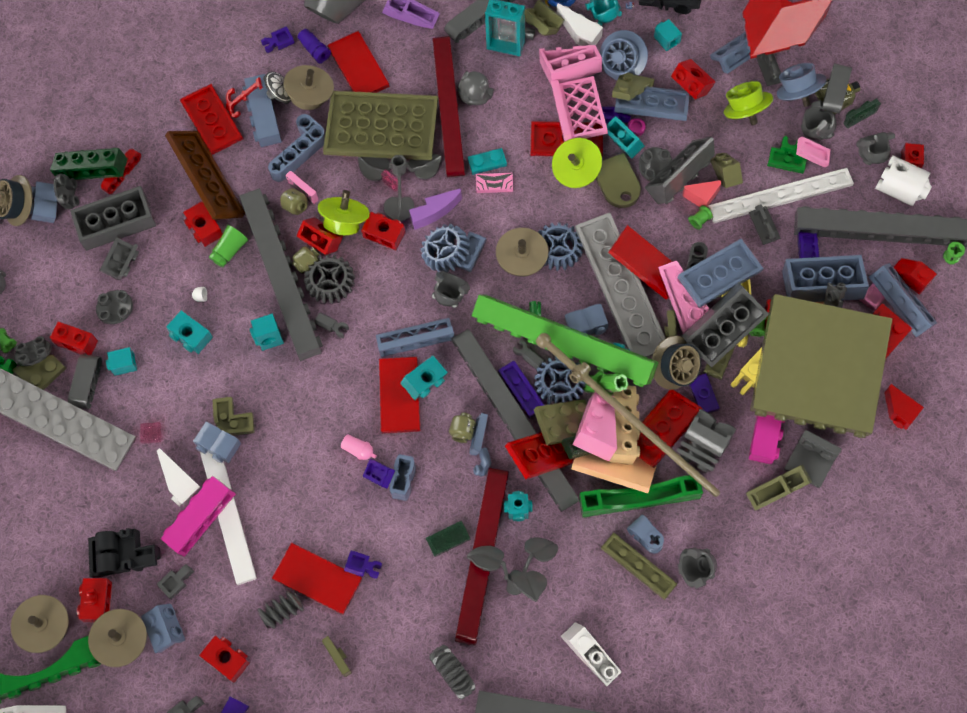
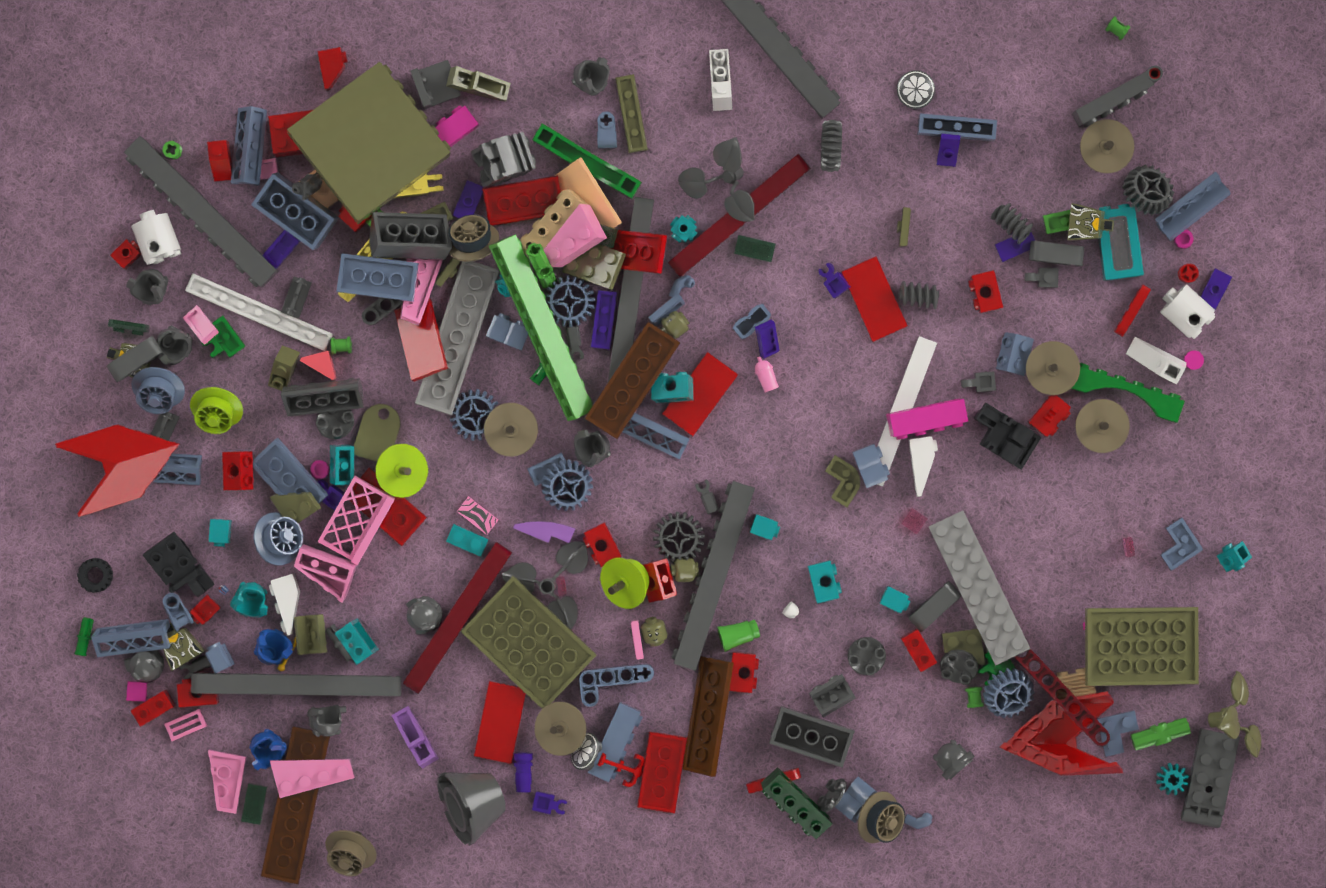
camera: 150 degrees left, 20 degrees up
(459, 357) = (632, 380): none -> reddish brown plate
(581, 373) = (555, 284): dark tan bar -> none

